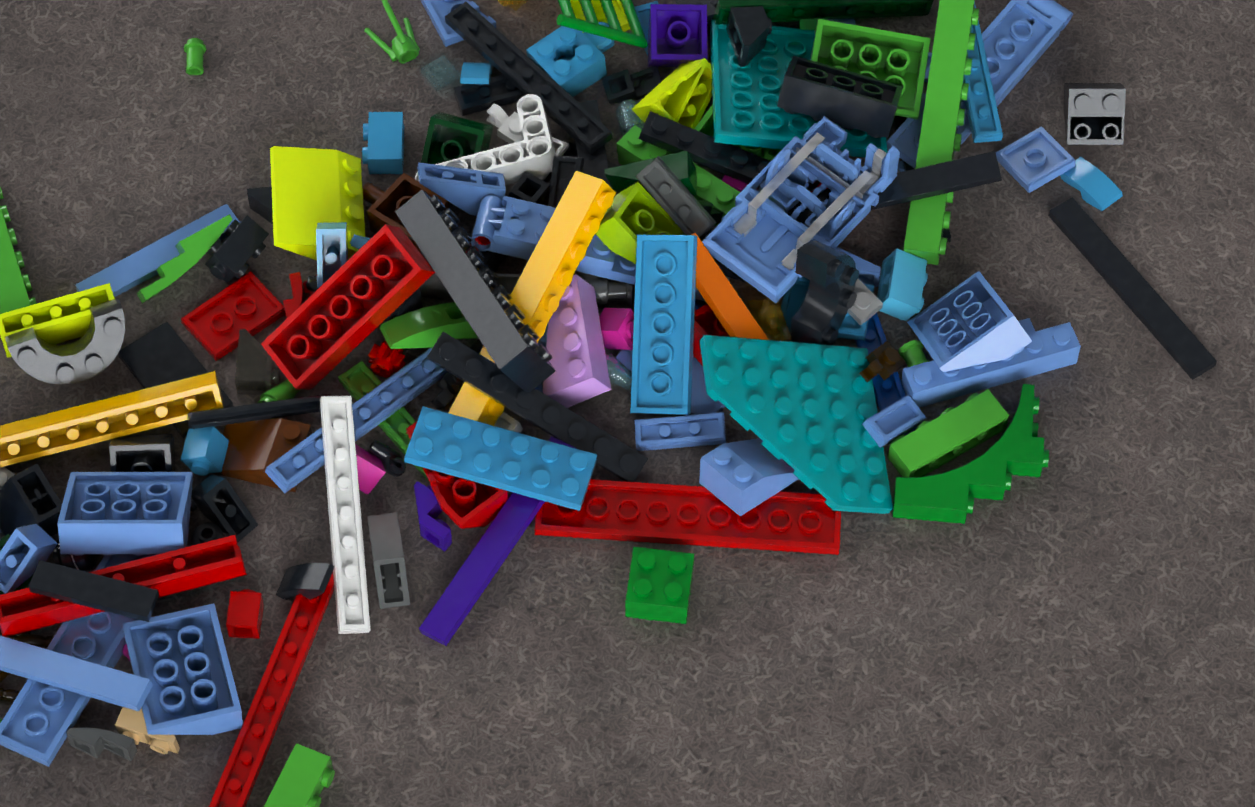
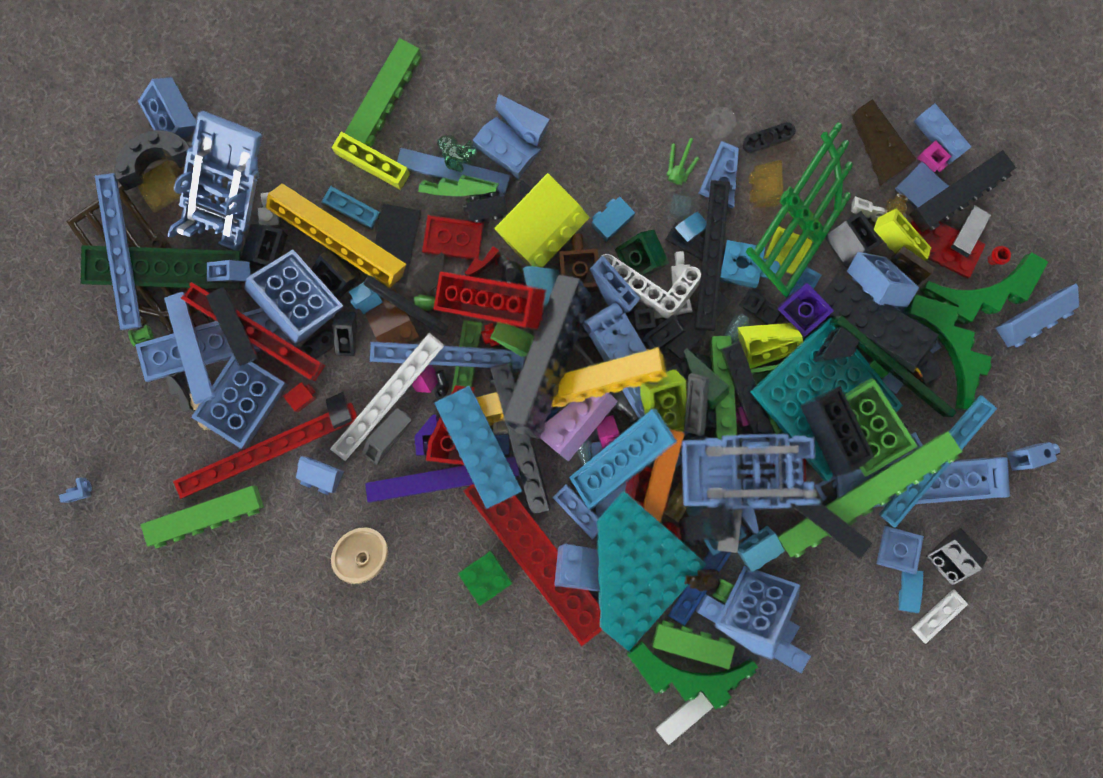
camera: 45 degrees right, 25 degrees up
(73, 361) = (353, 188): brick -> none
(105, 385) = (351, 207): none -> dark azure tile
(146, 233) = (454, 154): none -> clear green animal
(179, 142) = (525, 122): none -> medium blue slope
(192, 185) = (505, 147): none -> medium blue slope
(195, 49) = (578, 77): bright green pin -> none
(330, 249) = (512, 262): brick -> none
(357, 660) = (318, 474): none -> medium blue slope
(498, 694) = (351, 551): none -> tan dish
(894, 421) = (676, 613): medium blue tile -> none
(1025, 515) = (684, 718): none -> white tile
(1132, 288) = (865, 662): black tile -> none
(1146, 181) = (939, 616): none -> white tile

